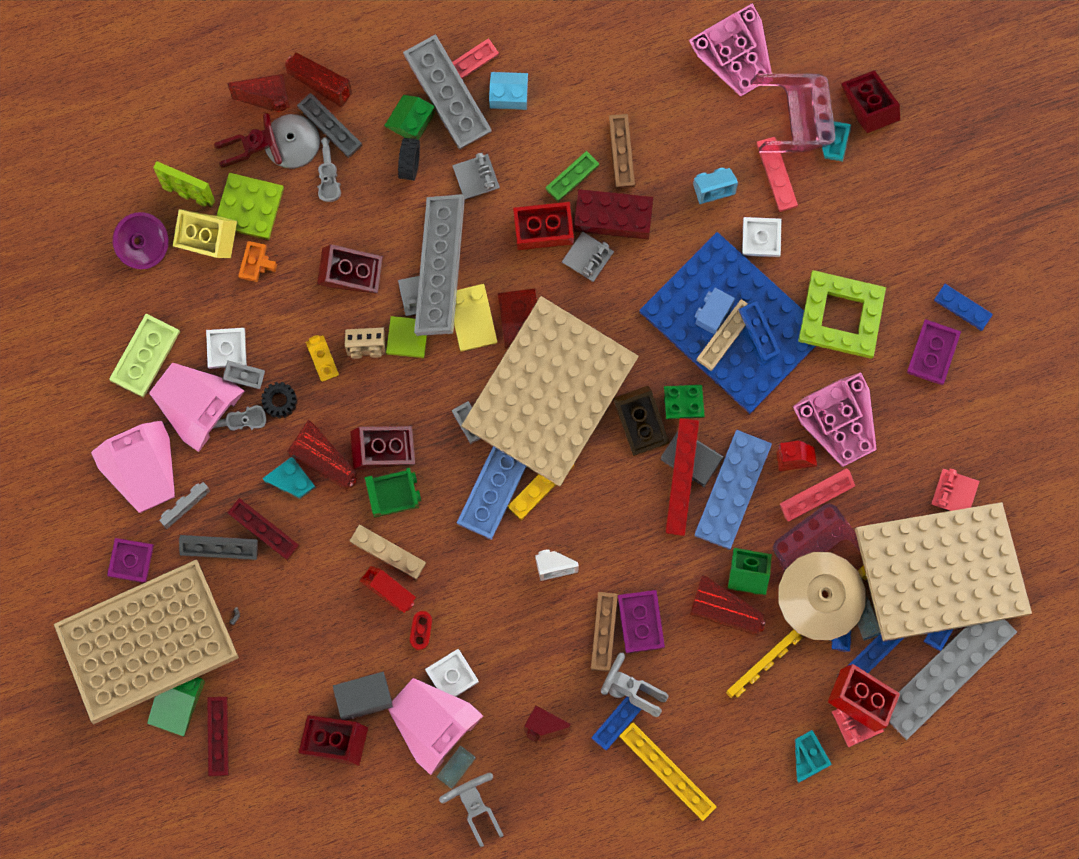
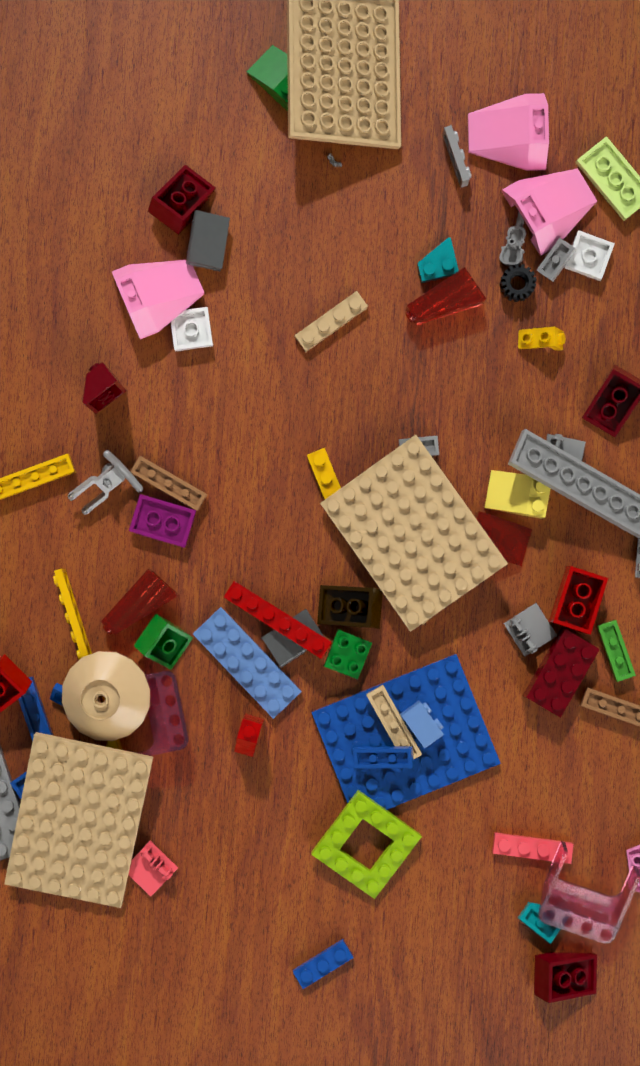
camera: 115 degrees right, 10 degrees up
(130, 560) = (426, 88): magenta plate -> none
(218, 547) = (403, 170): dark grey plate -> none
(218, 736) = (231, 100): dark red plate -> none
(263, 529) = (402, 217): dark red plate -> none
(365, 342) = (539, 383): tan slope -> none
(382, 447) = (430, 358): dark red slope -> none
(388, 589) = (295, 304): red slope -> none
(393, 493) = (384, 348): green panel -> none
(403, 340) = (525, 418): lime tile -> none
(421, 631) = (246, 318): red plate -> none
(456, 767) = (108, 297): clear light blue plate -> none
(471, 799) = (65, 296): light grey piece -> none
(491, 494) = (341, 437): medium blue plate -> none
(554, 565) = (249, 463): white slope -> none
(616, 724) = (80, 455): blue plate -> none
(715, 185) = (547, 782): medium azure slope -> none
(761, 237) = (476, 803): white plate -> none
(817, 494) = (205, 738): coral plate -> none
(840, 418) = (268, 794): bright pink wedge -> none
(868, 623) = (64, 728): clear light blue plate -> none
(933, 352) = (291, 914): magenta plate -> none

